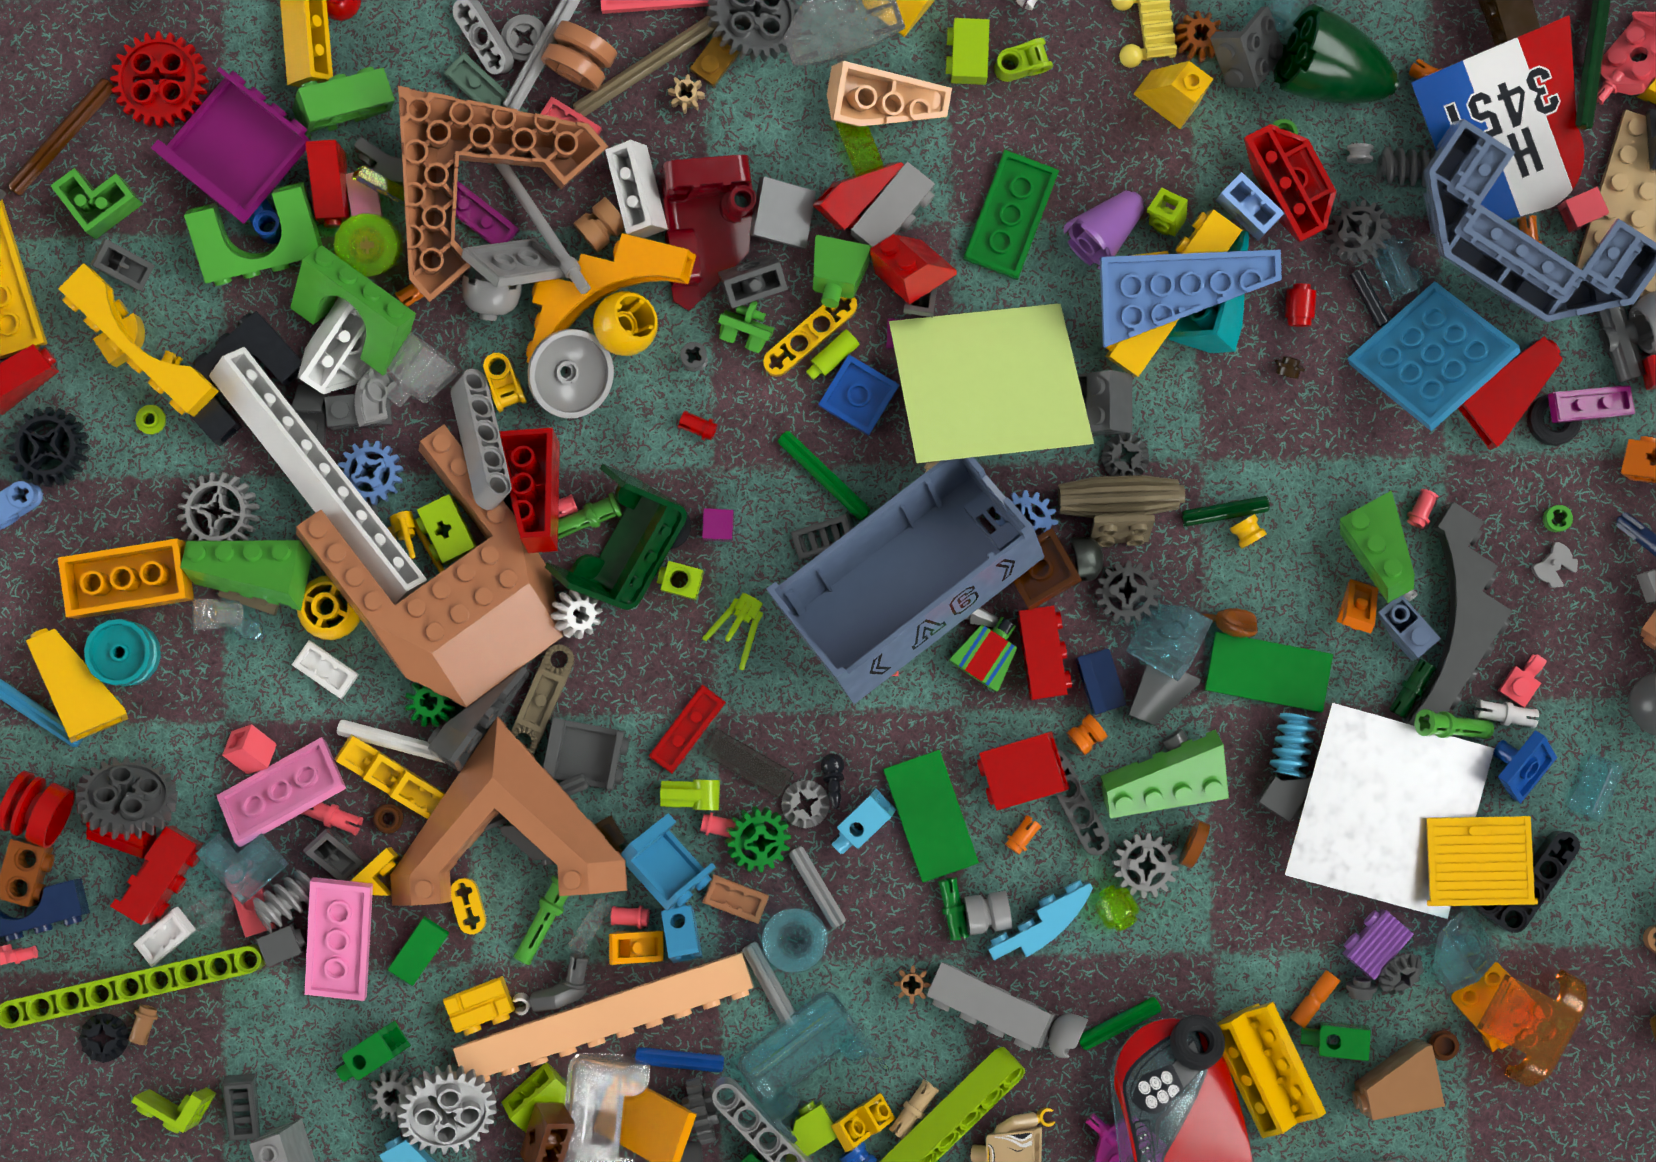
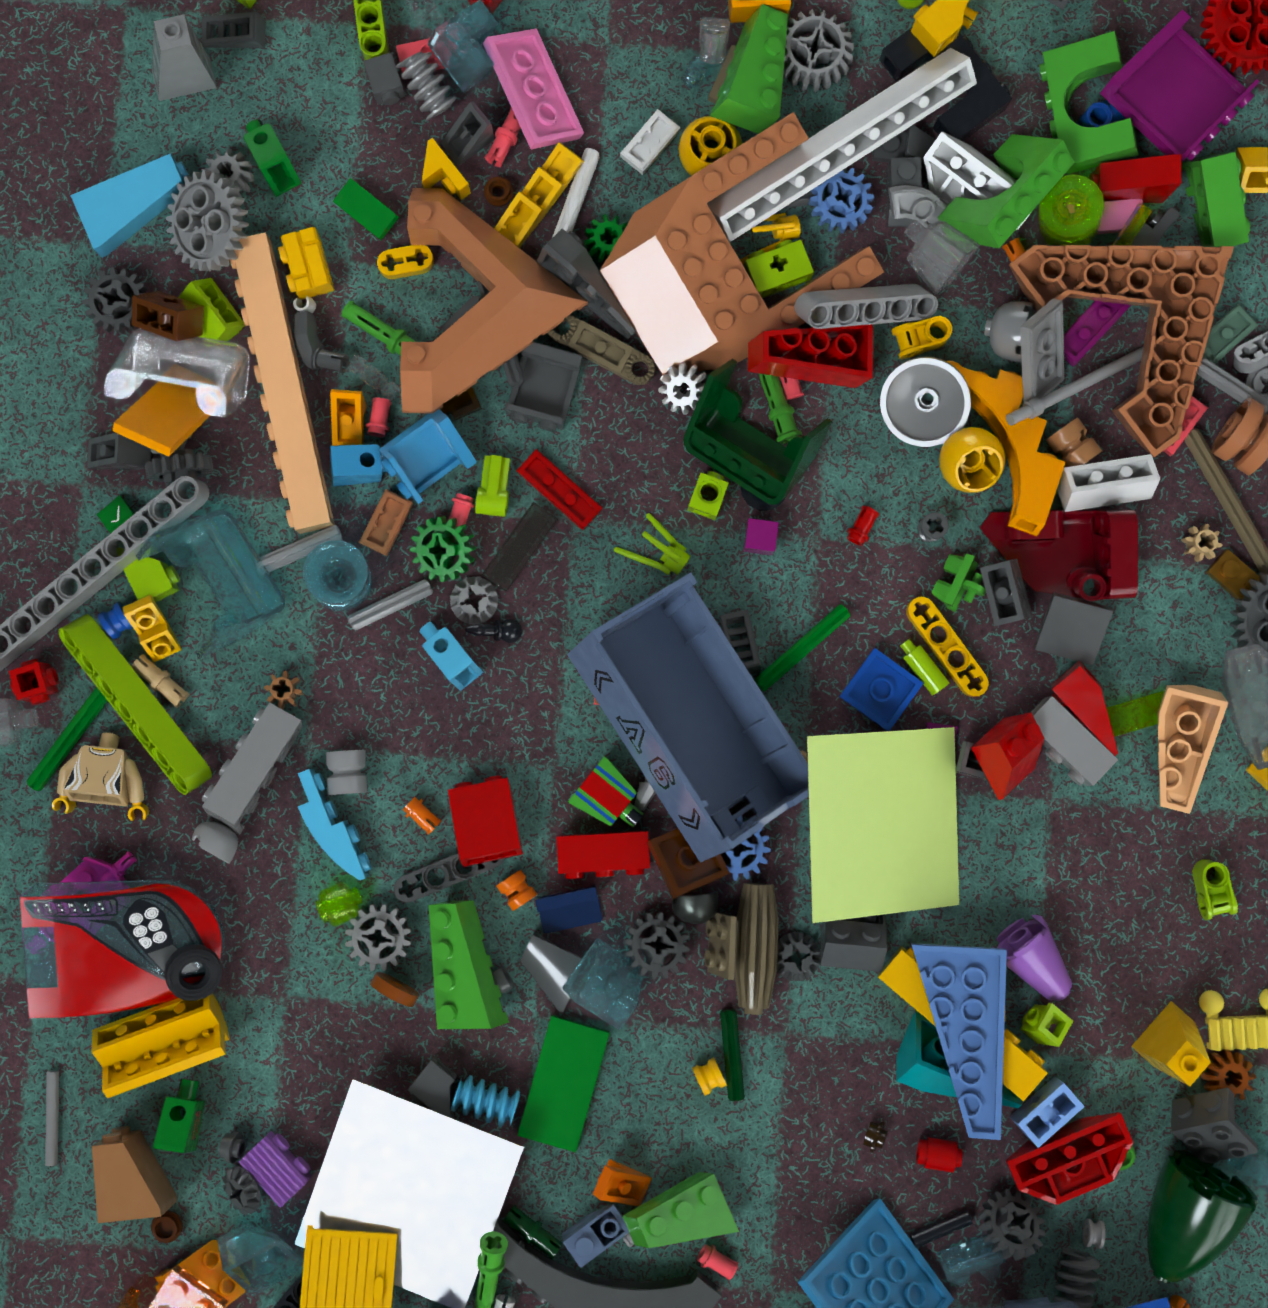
camera: 90 degrees right, 0 degrees up
(249, 749) = (578, 63): coral panel -> none
(338, 939) = (384, 131): bright pink plate -> none
(680, 1059) = (234, 454): blue axle -> none
(838, 268) = (1012, 680): bright green torso -> none
(931, 816) = (449, 724): green tile -> none
(953, 909) = (355, 738): green pin -> none
(969, 51) = (1227, 834): lime brick -> none
(1011, 214) = (1054, 862): green tile -> none
(1120, 1023) = (223, 896): green axle -> none
(1235, 622) = (617, 1053): dark orange piece -> none
(1317, 996) = (230, 1101): orange piece -> none

